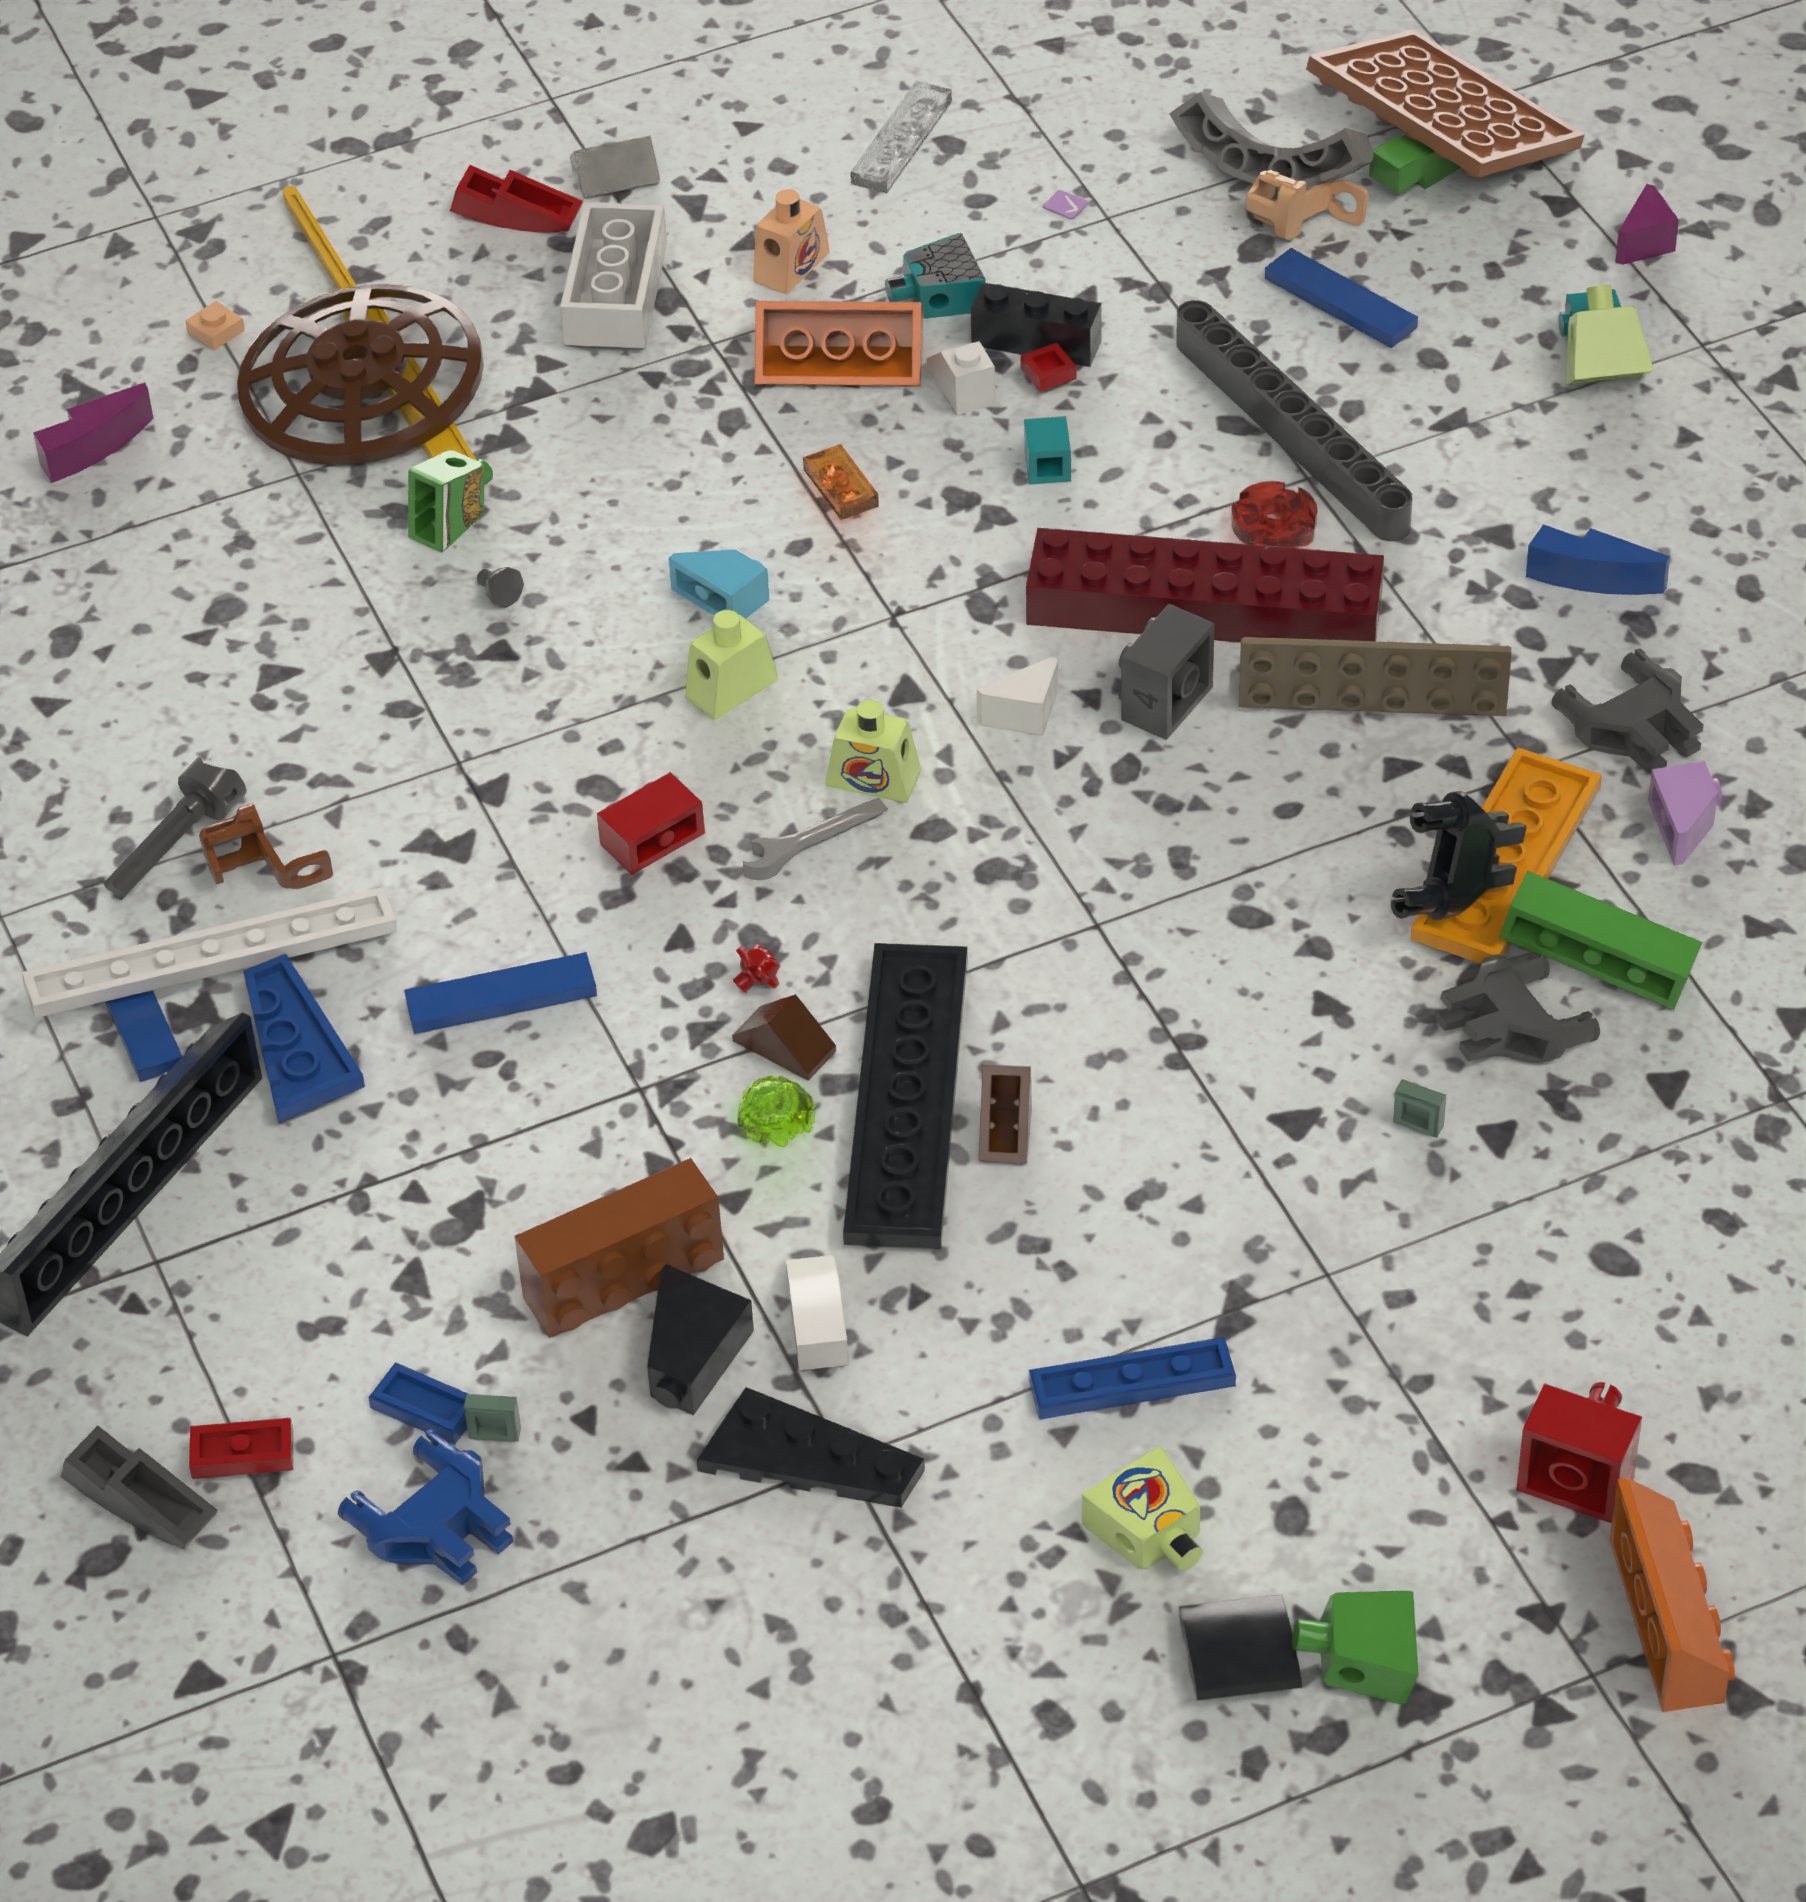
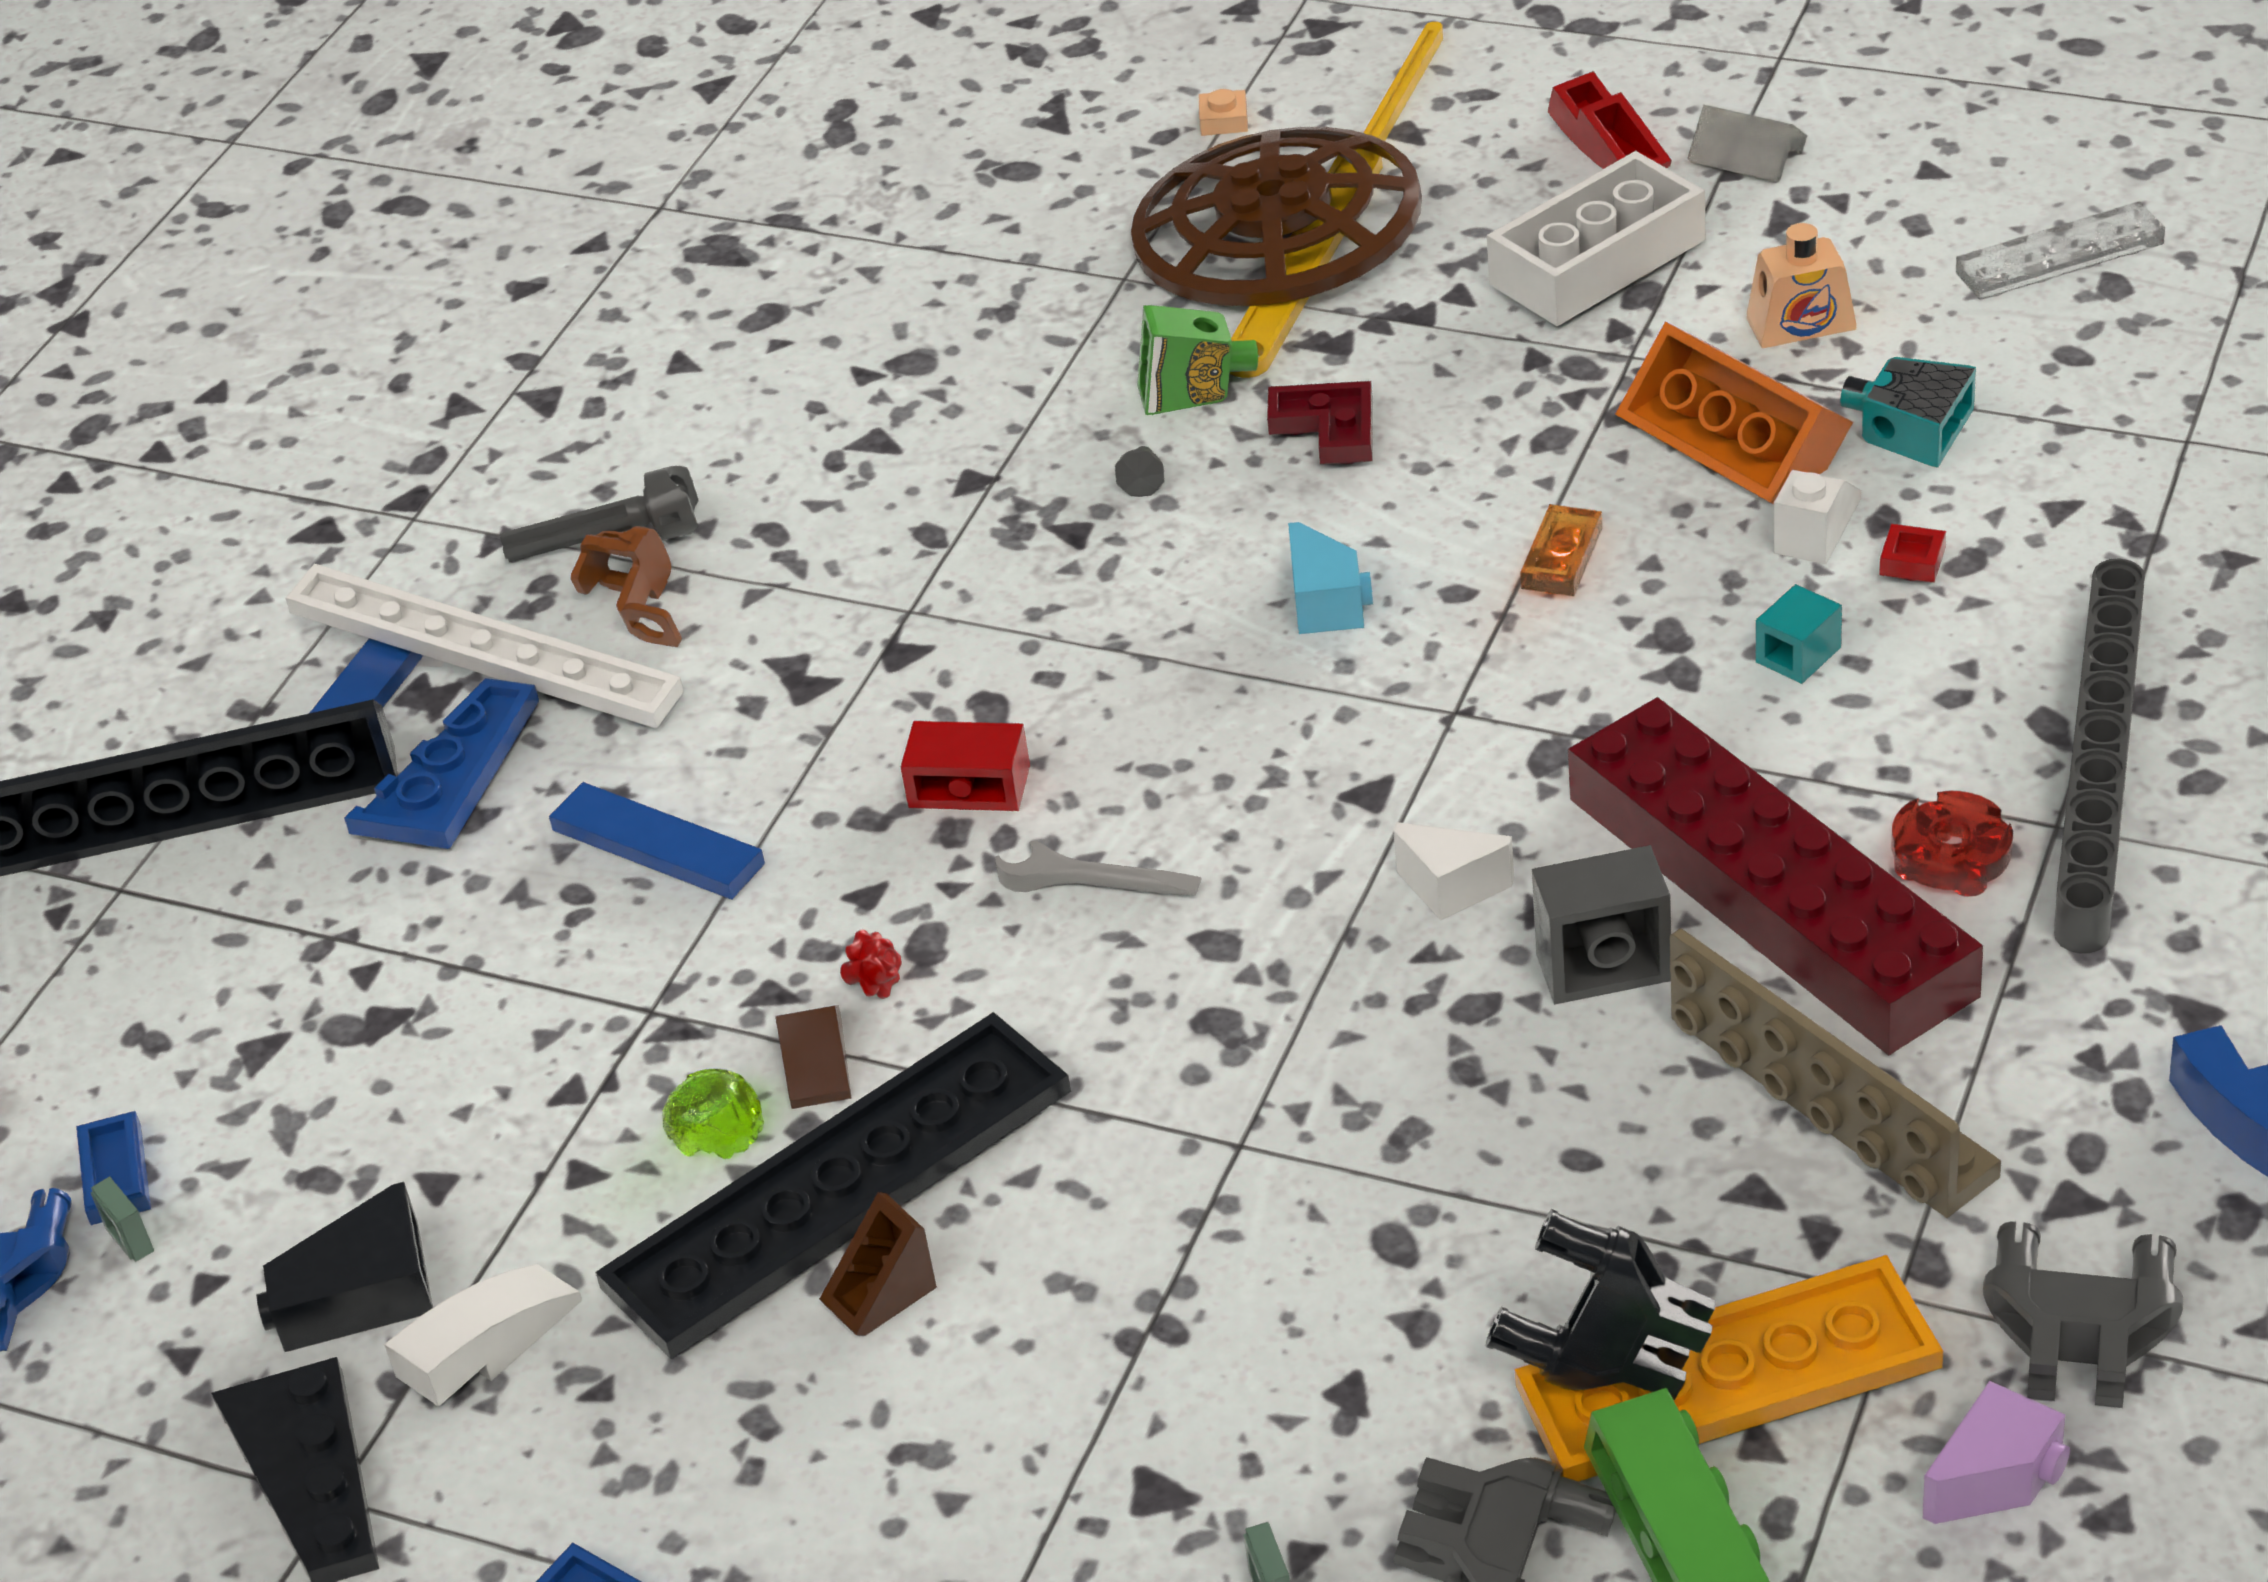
camera: 50 degrees right, 5 degrees down
(93, 431) = (1000, 149): magenta slope -> none
(584, 476) = (1335, 410): none -> dark red plate
(617, 1247) = (370, 1126): dark orange brick -> none
(728, 665) = (1218, 656): yellowish green torso -> none
(874, 754) = (1223, 805): yellowish green torso -> none
(1029, 320) = (1944, 492): black brick -> none
(1065, 204) = (2158, 404): lavender sticker -> none

